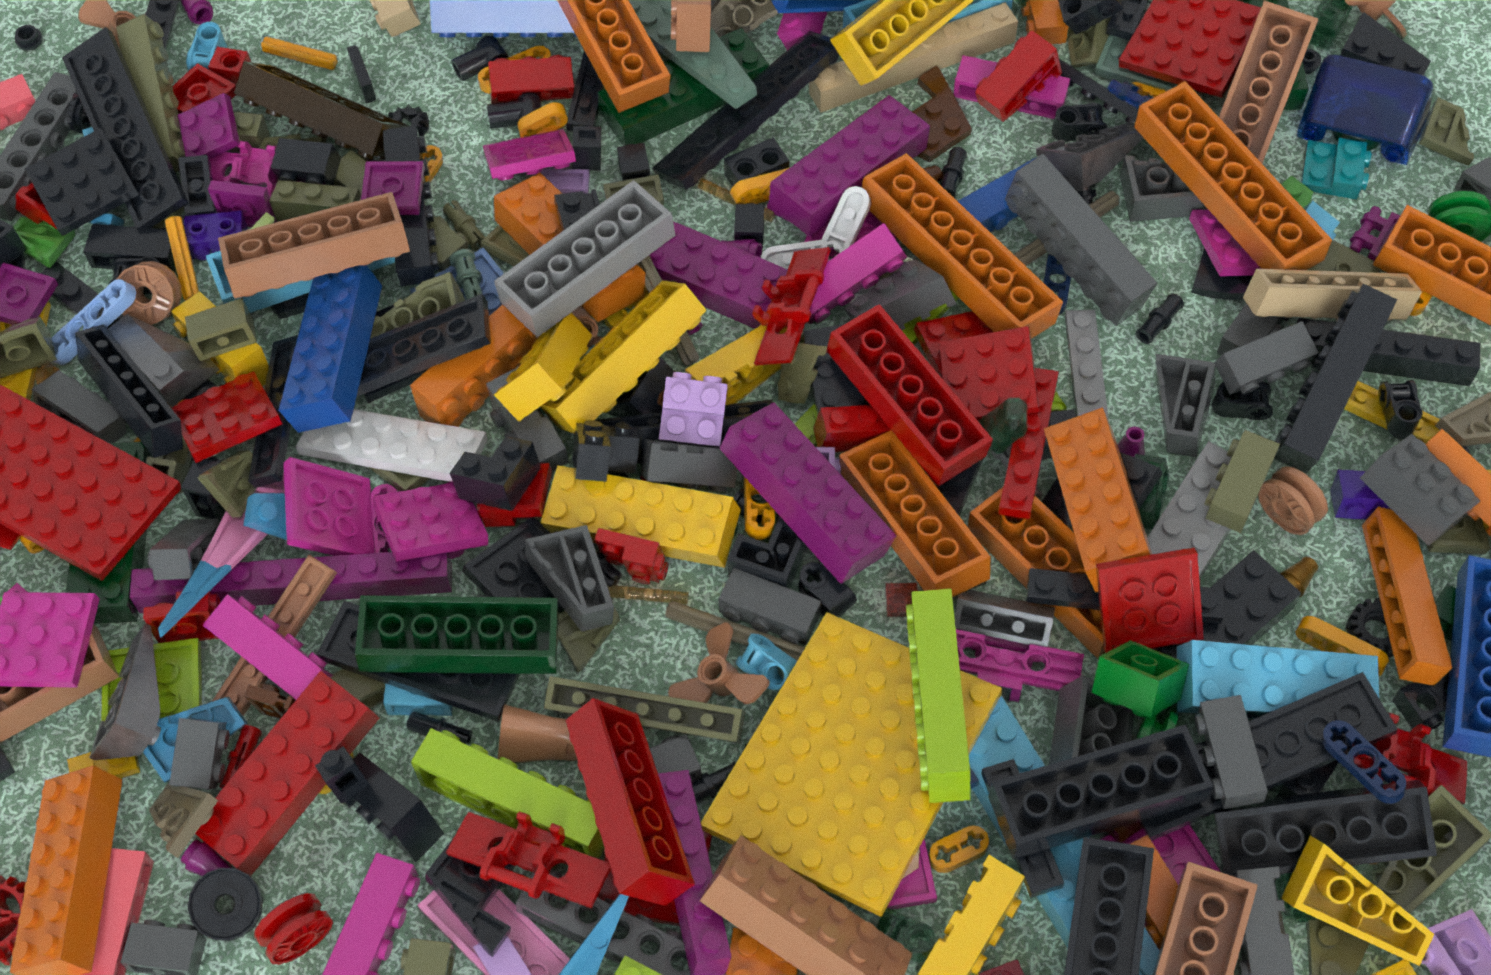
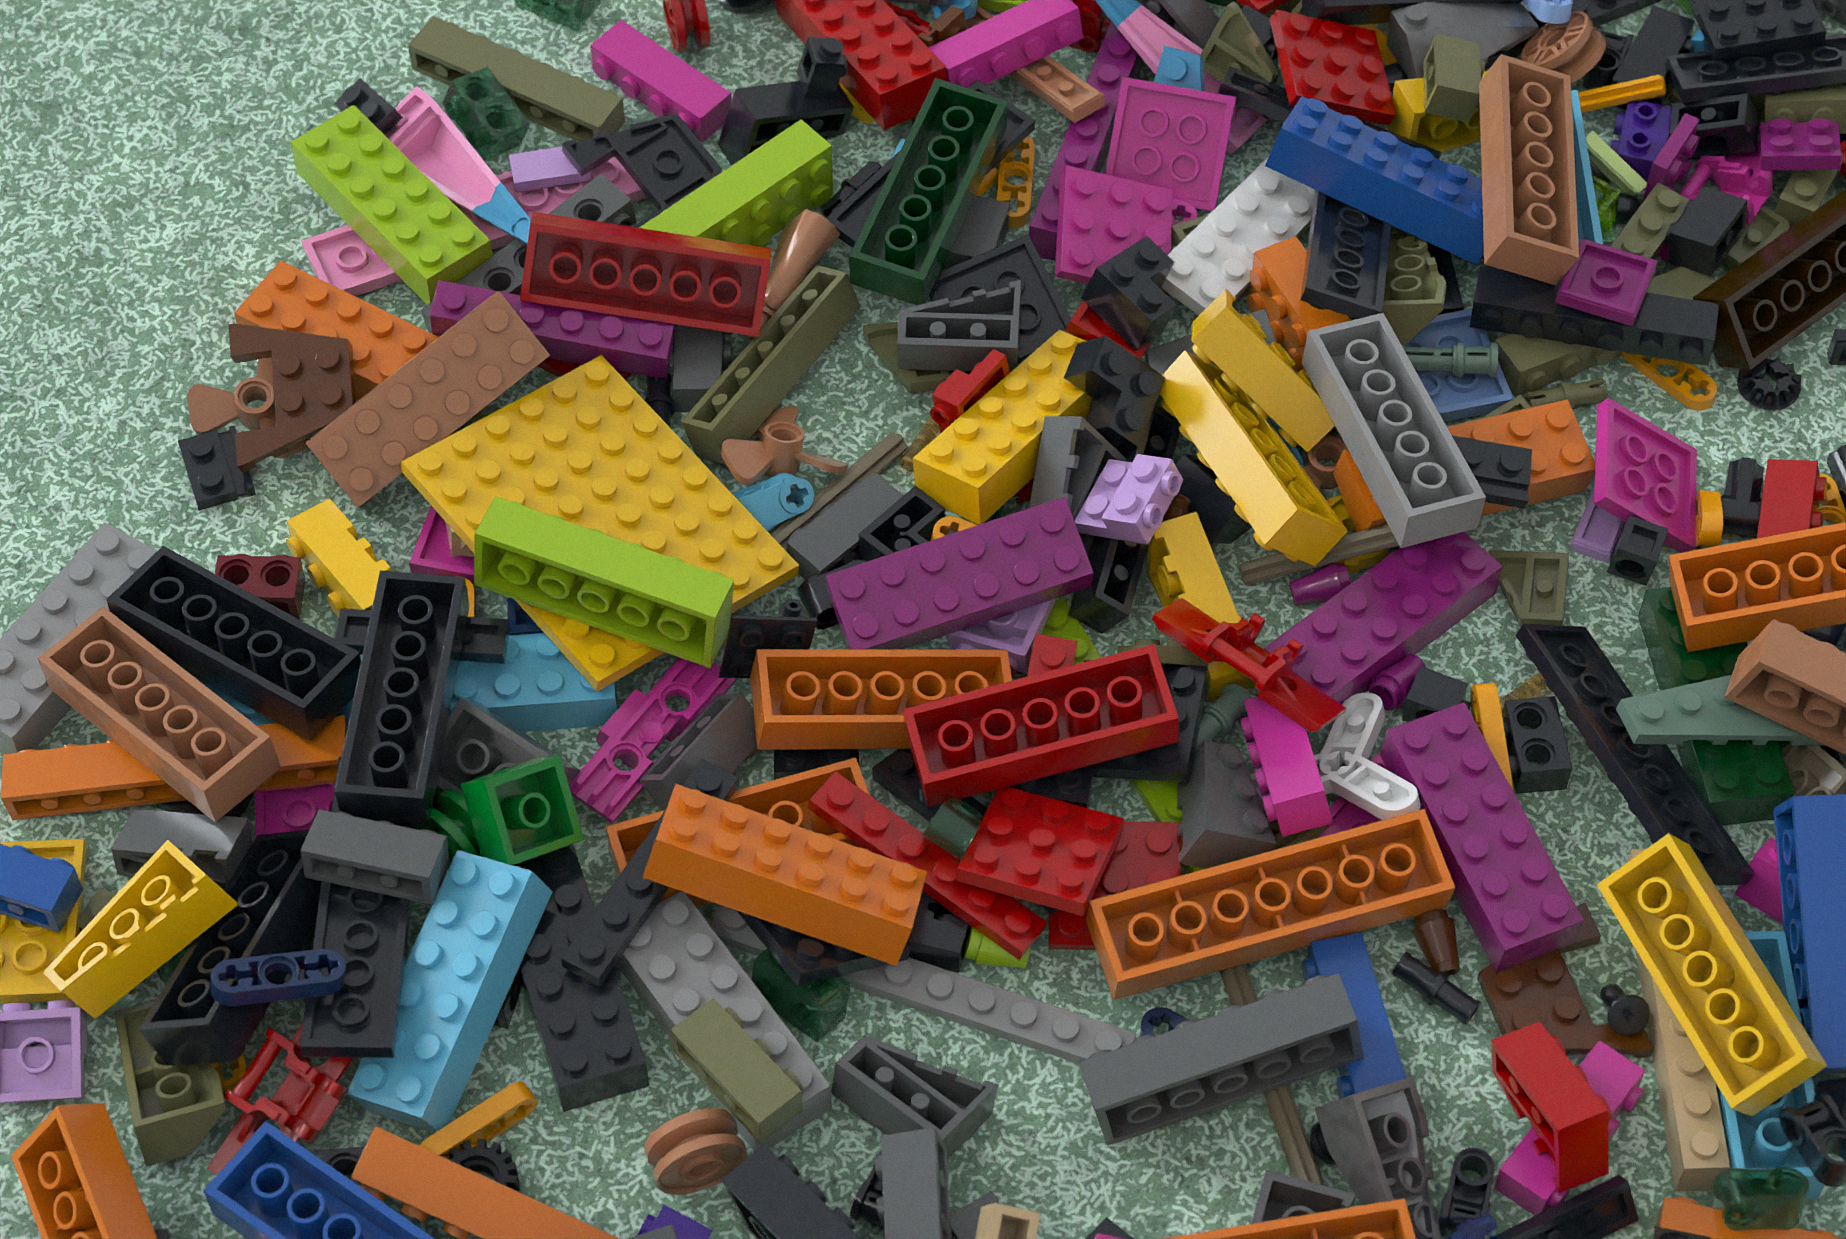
camera: 110 degrees right, 5 degrees down
(533, 851) = (651, 190): red piece -> none
(633, 161) = (1594, 602): black brick -> none
(901, 581) = (751, 633): none -> black hinge
(905, 930) = (389, 518): clear green piece -> none
(924, 78) = (1626, 1012): none -> black piece
(1132, 442) = (879, 1012): magenta cone -> none
(1150, 599) = (610, 855): red plate -> none
(1160, 318) = (1070, 1148): black pin -> none
(1301, 573) = (595, 1123): pearl gold cone -> none

